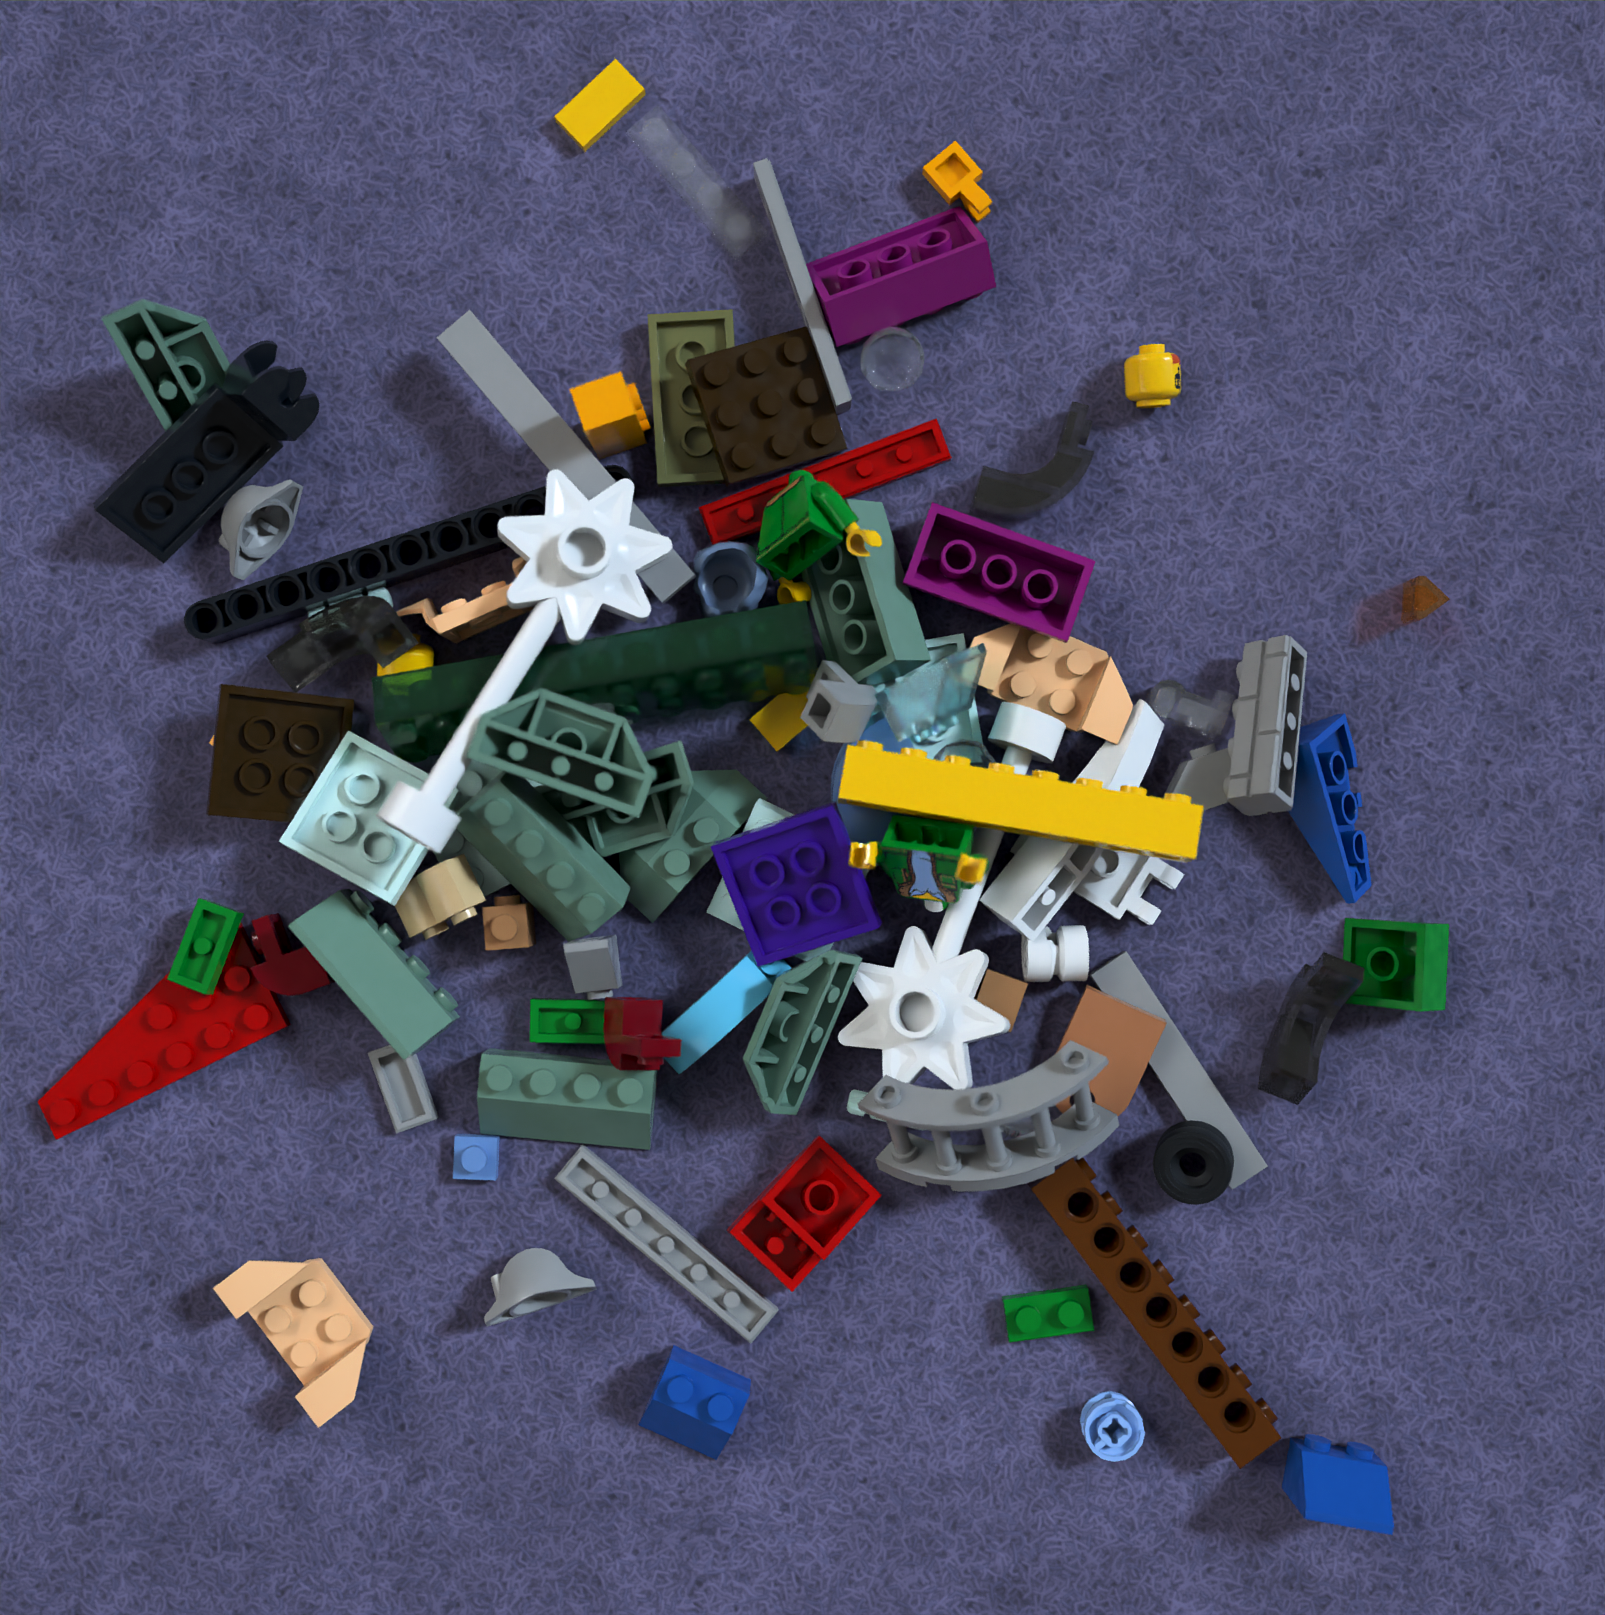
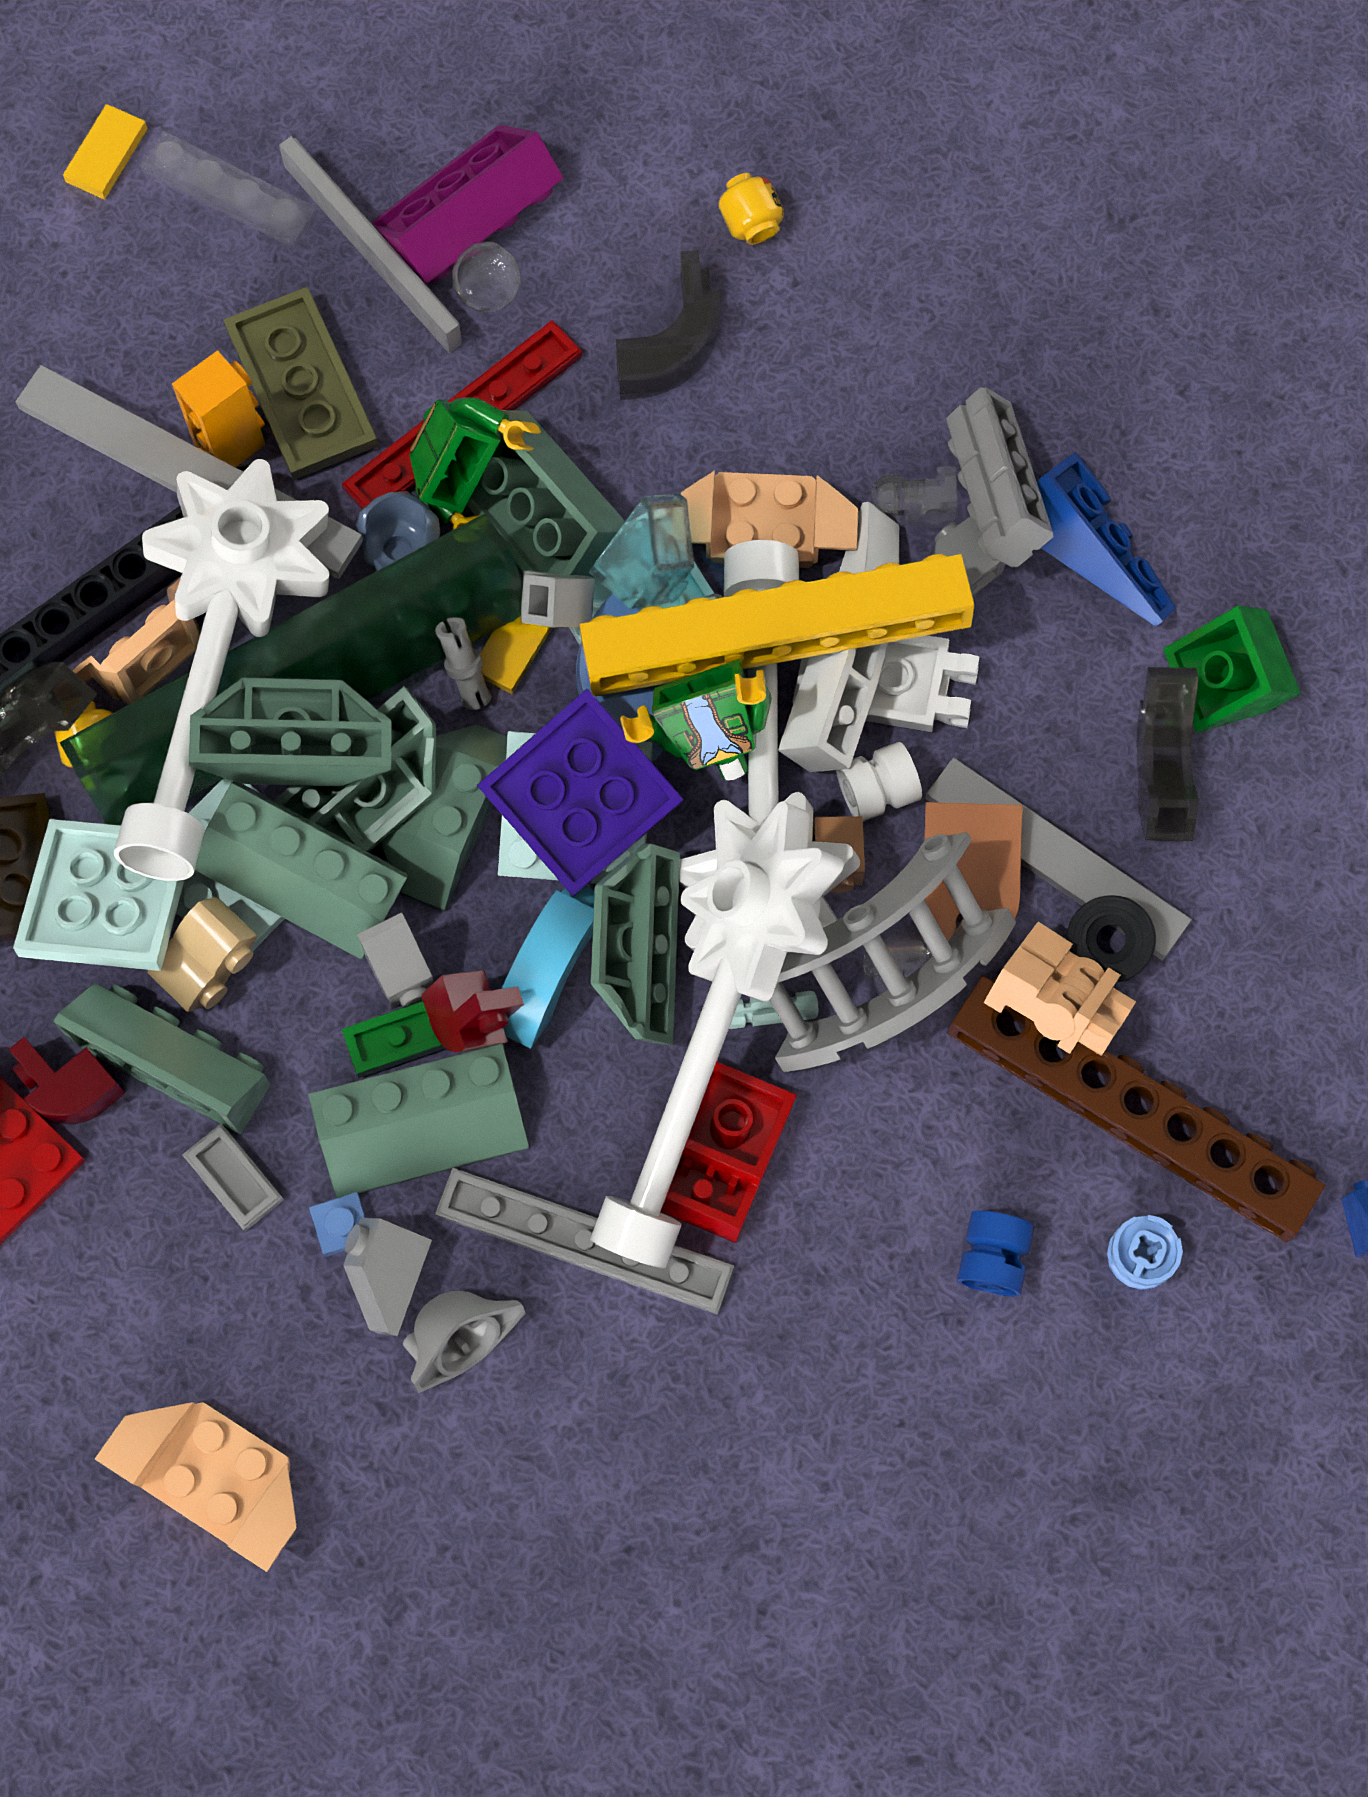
camera: 20 degrees left, 15 degrees down
(496, 1214) = (383, 1271): none -> light grey slope
(508, 924) = (290, 958): medium nougat brick -> none
(696, 1402) = (681, 1402): blue slope -> none
(741, 721) = (463, 663): none -> light grey pin
(766, 406) = (374, 362): dark brown plate -> none
(896, 1075) = (754, 913): none -> white piece
(955, 177) = (487, 97): light orange plate -> none
(990, 1386) = (995, 1253): none -> blue wheel
(999, 572) = (670, 427): magenta slope -> none
(1047, 1313) = (1026, 1161): green plate -> none
(1131, 1201) = (1061, 992): none -> light nougat hips
(1420, 599) = (1102, 318): clear orange slope -> none

